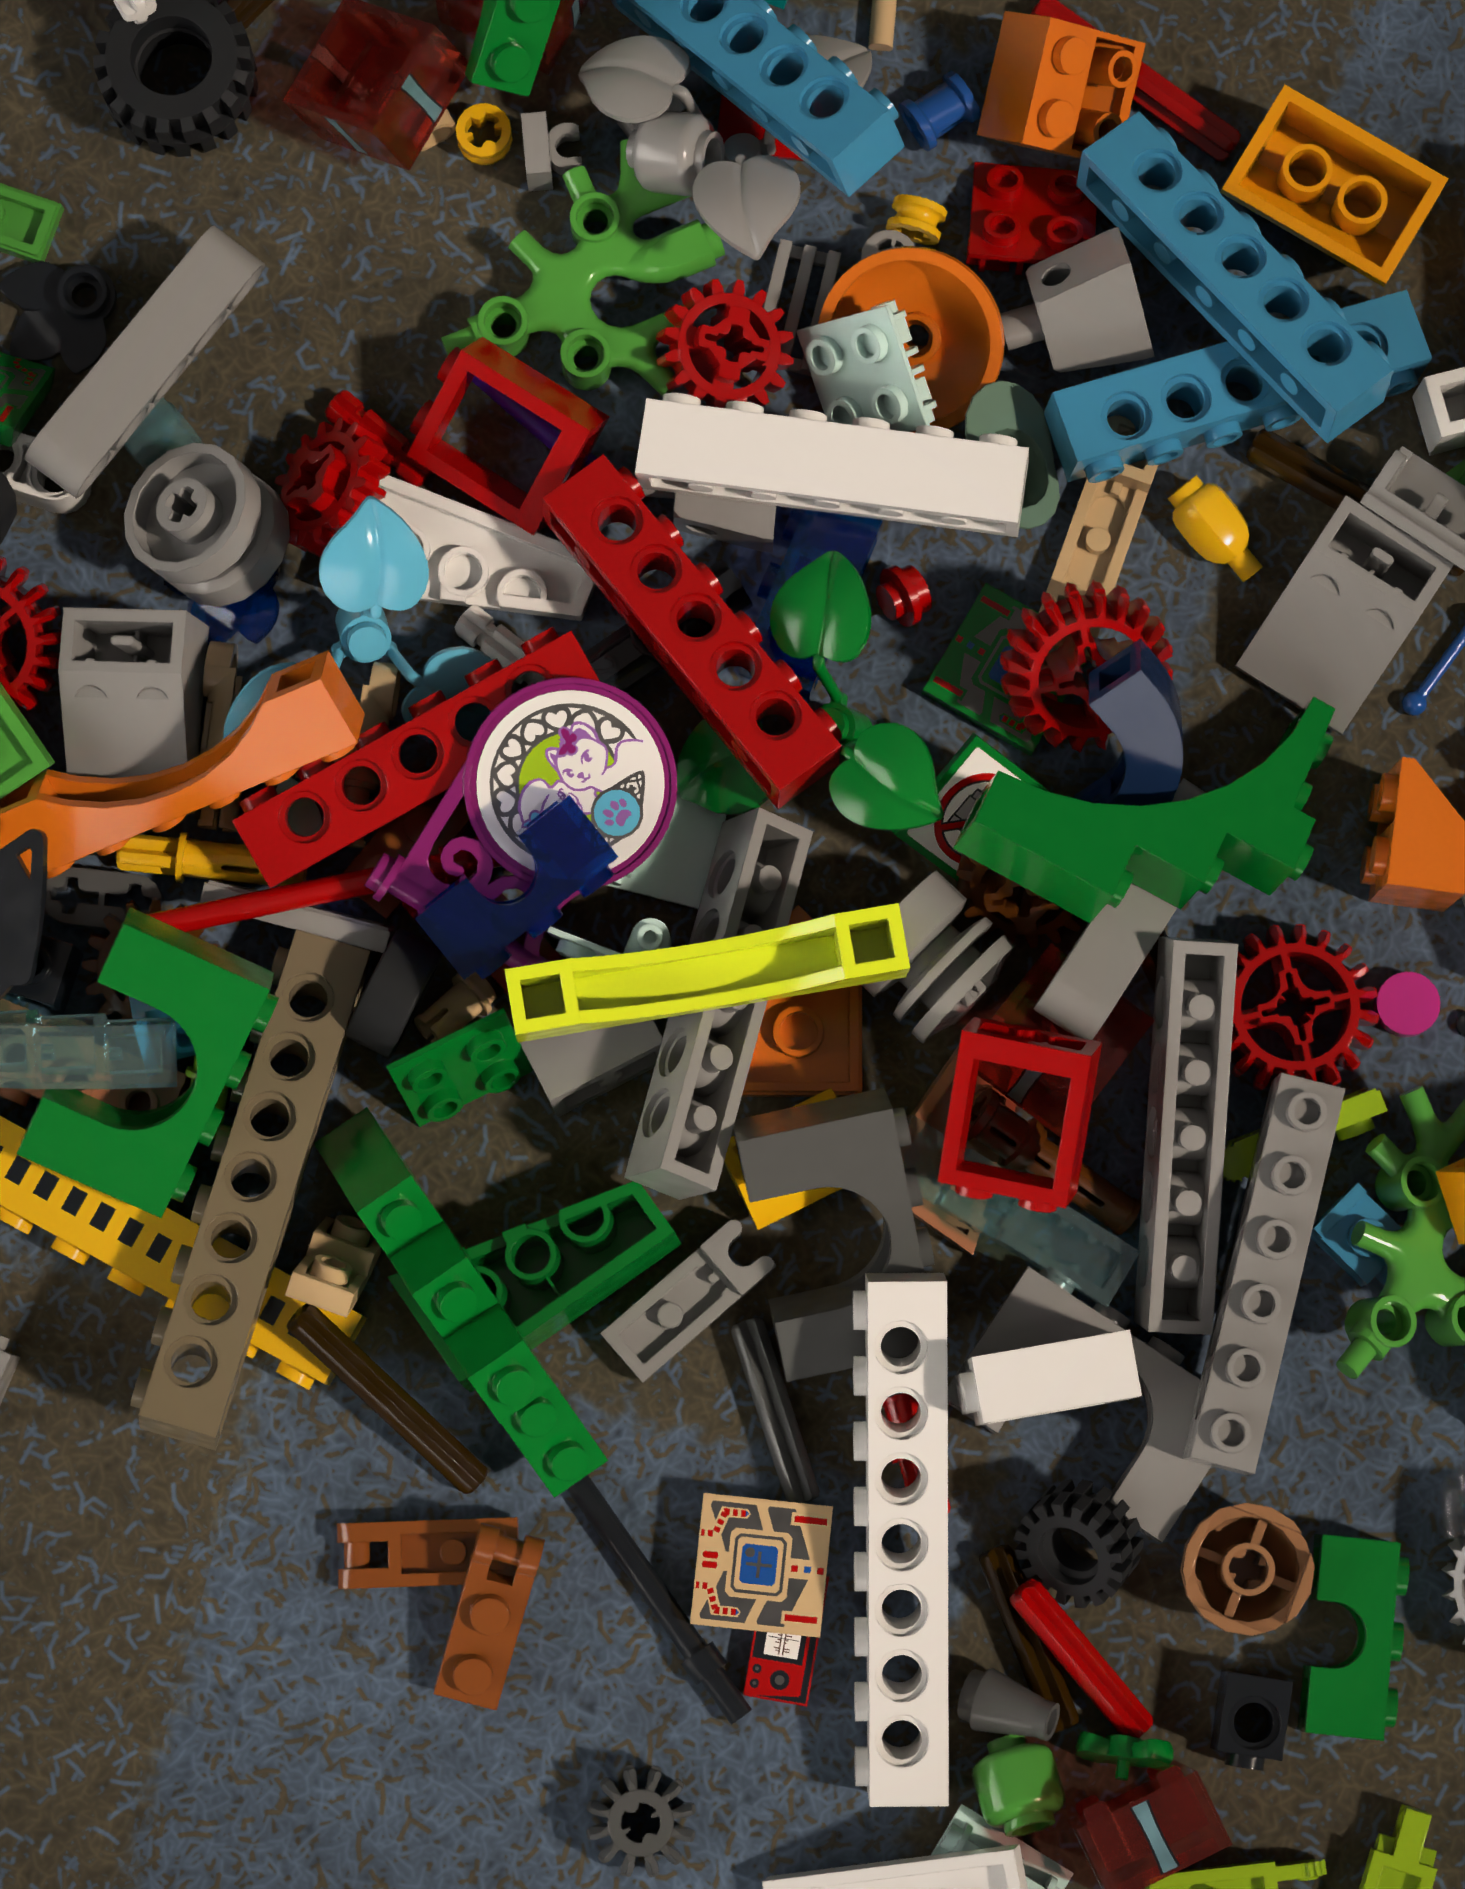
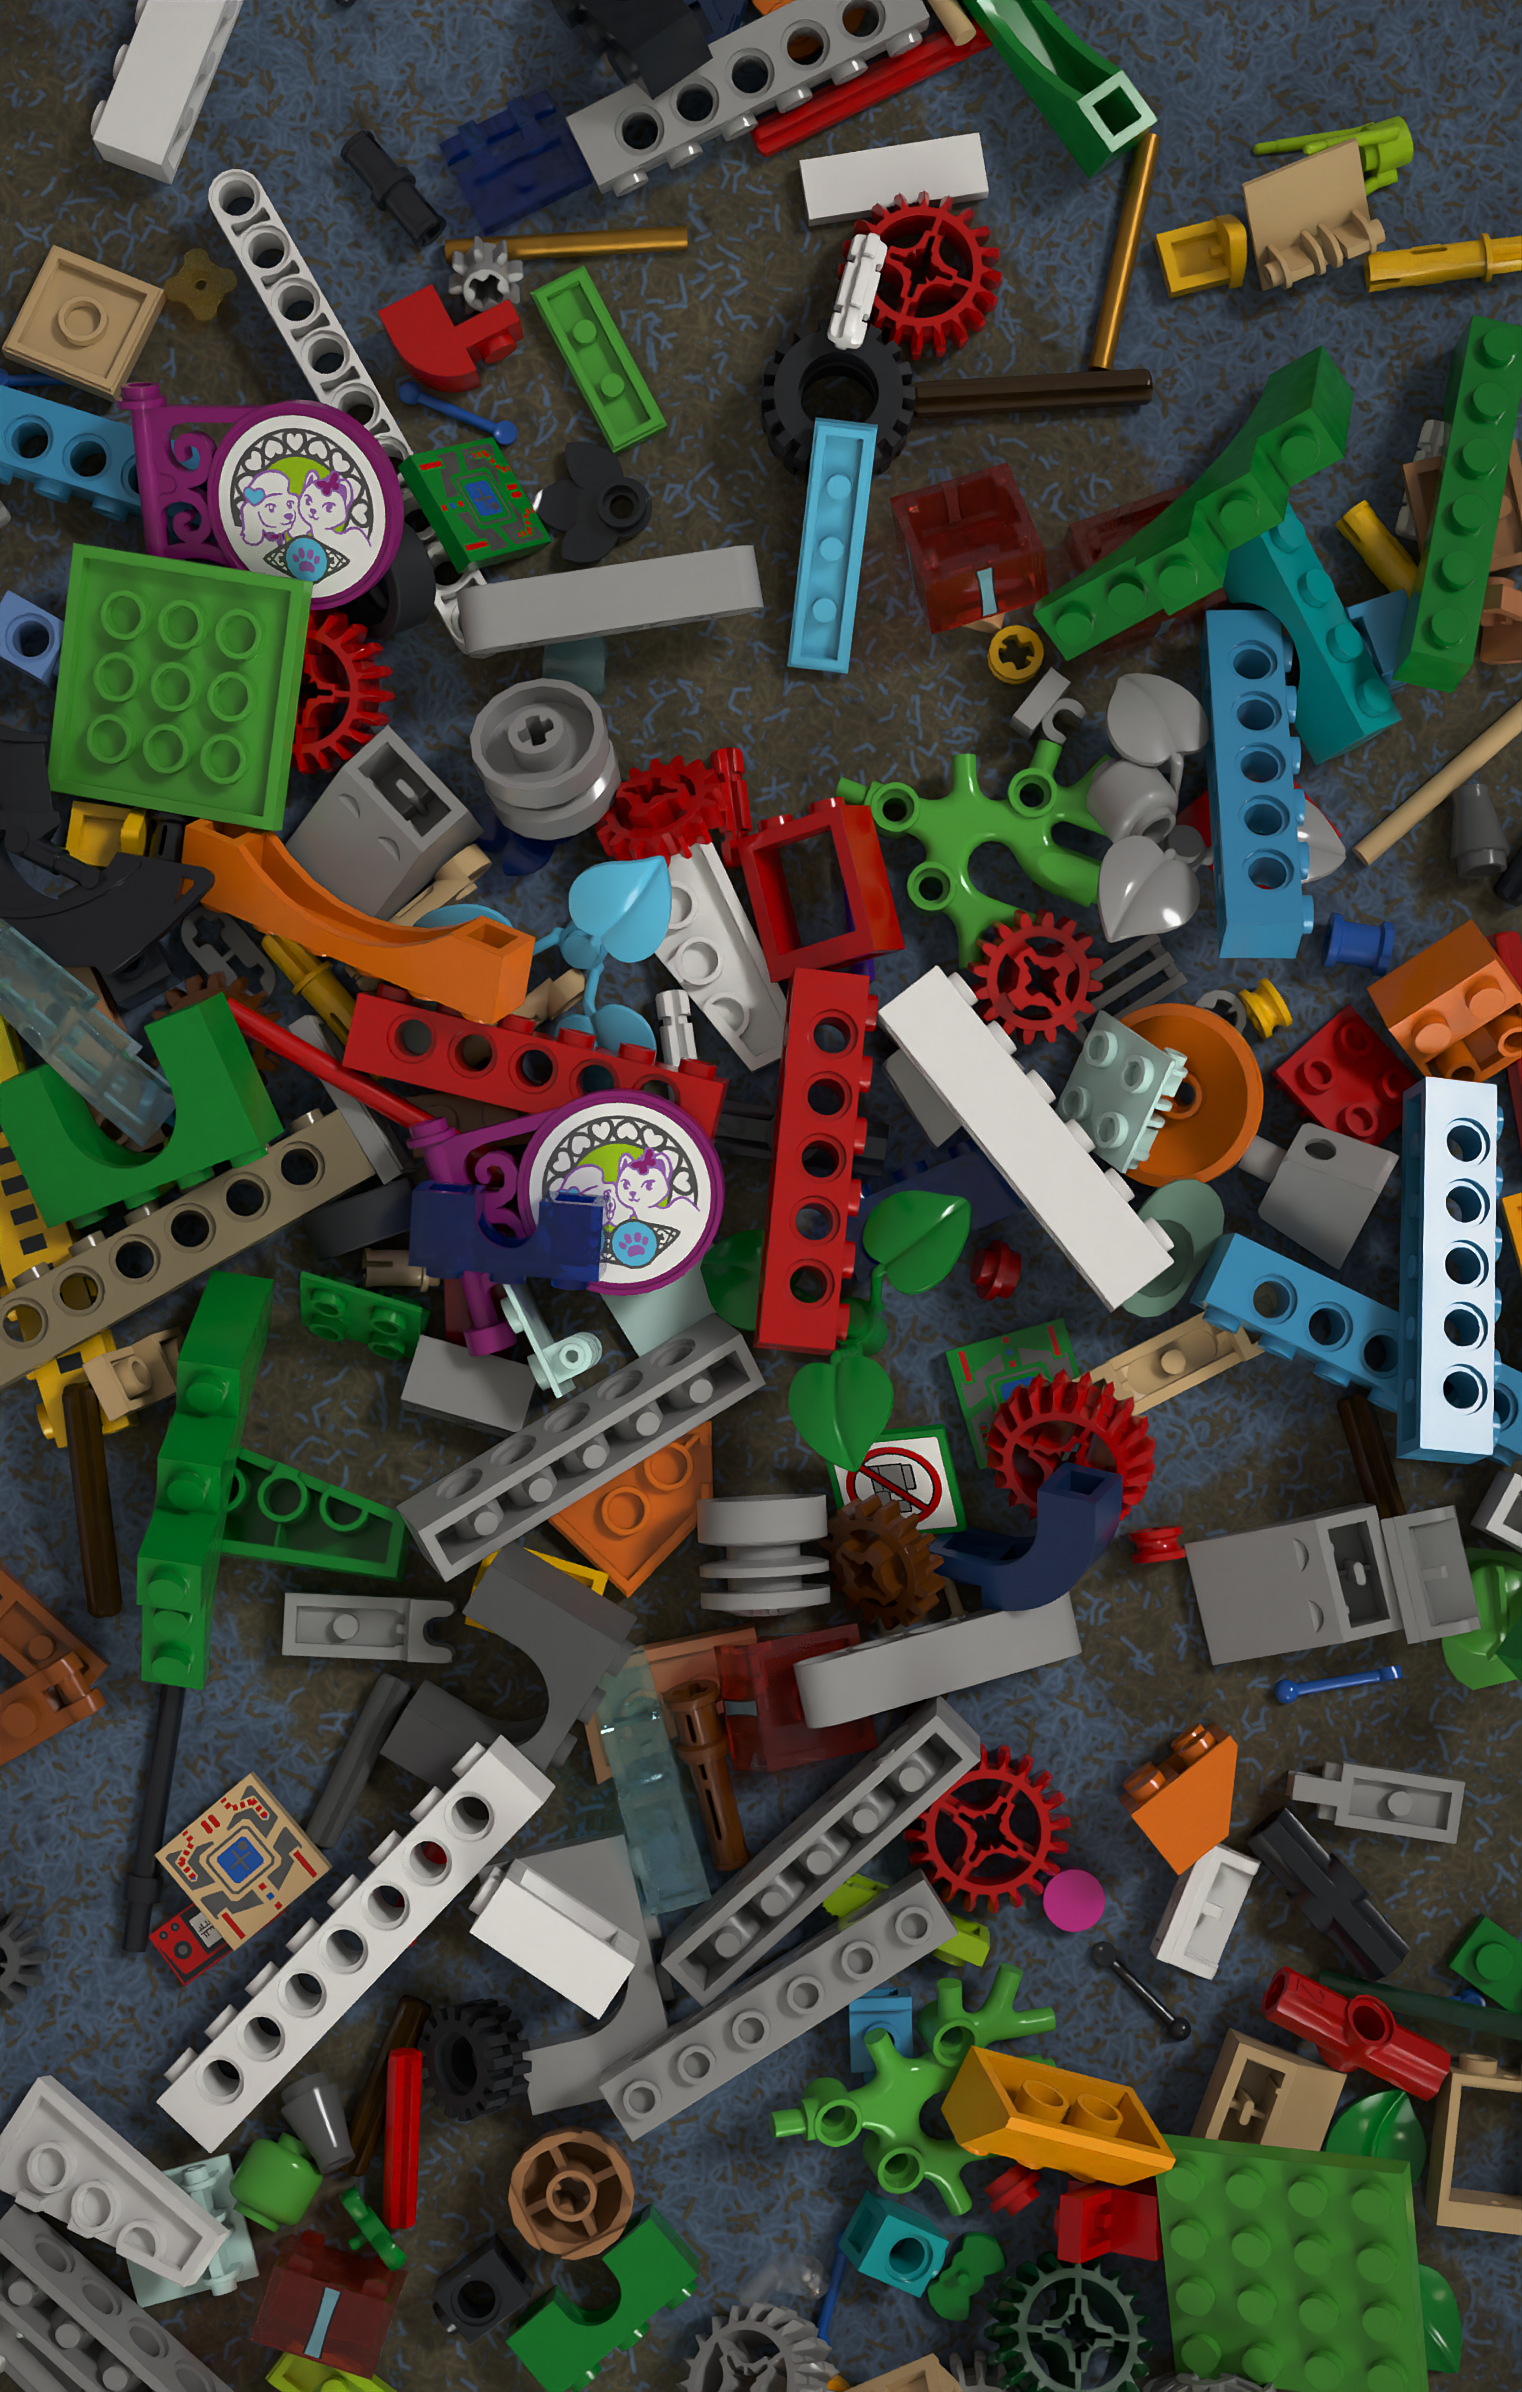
camera: 45 degrees right, 5 degrees up
(272, 174) = (832, 544): none -> medium azure tile
(708, 975) = (580, 1425): neon yellow arch -> none
(1033, 1051) = (758, 1700): red window -> none
(1092, 852) = (939, 1597): green arch -> none
(1213, 526) = (1265, 1430): yellow plant -> none
(1215, 683) = (1156, 1544): none -> red bush

